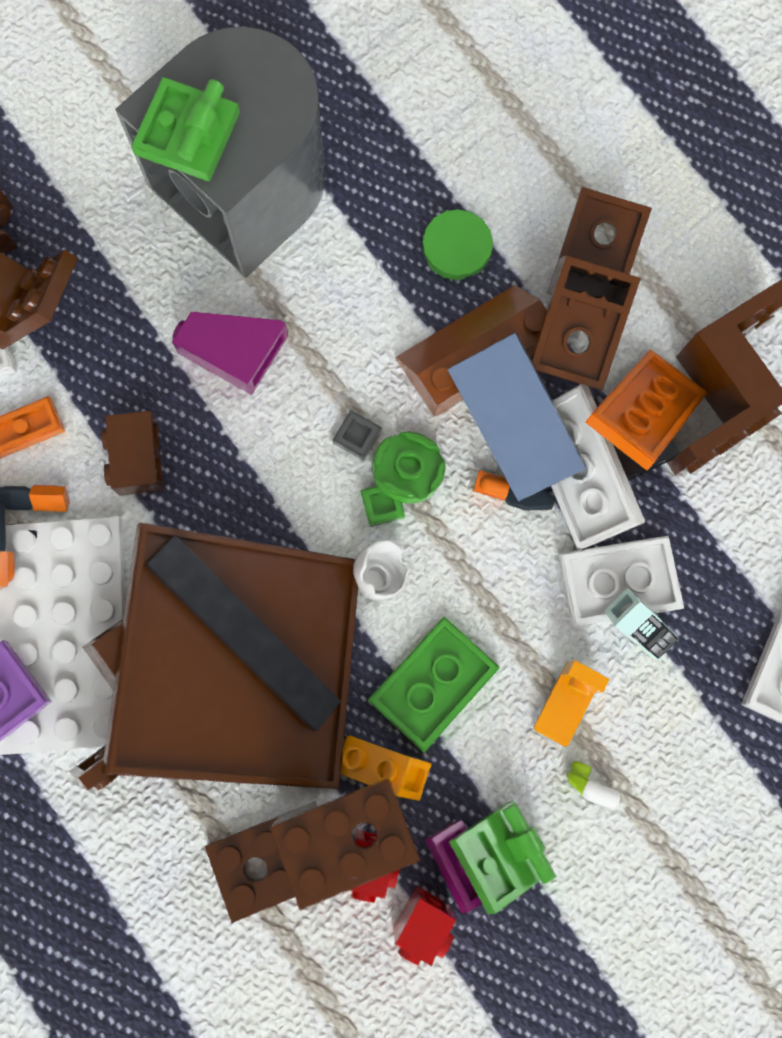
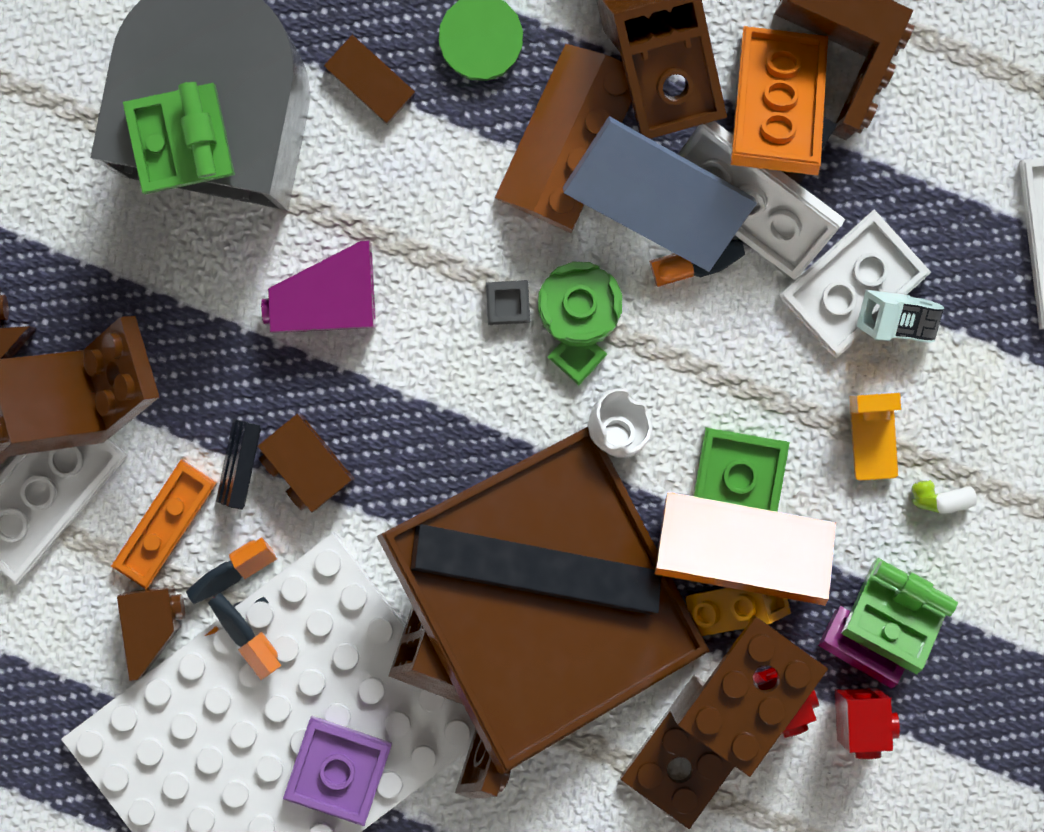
camera: 25 degrees left, 10 degrees up
(86, 424) = (238, 464): none -> black tile
(361, 225) = (369, 79): none -> reddish brown tile
(416, 726) = (746, 548): none -> tile

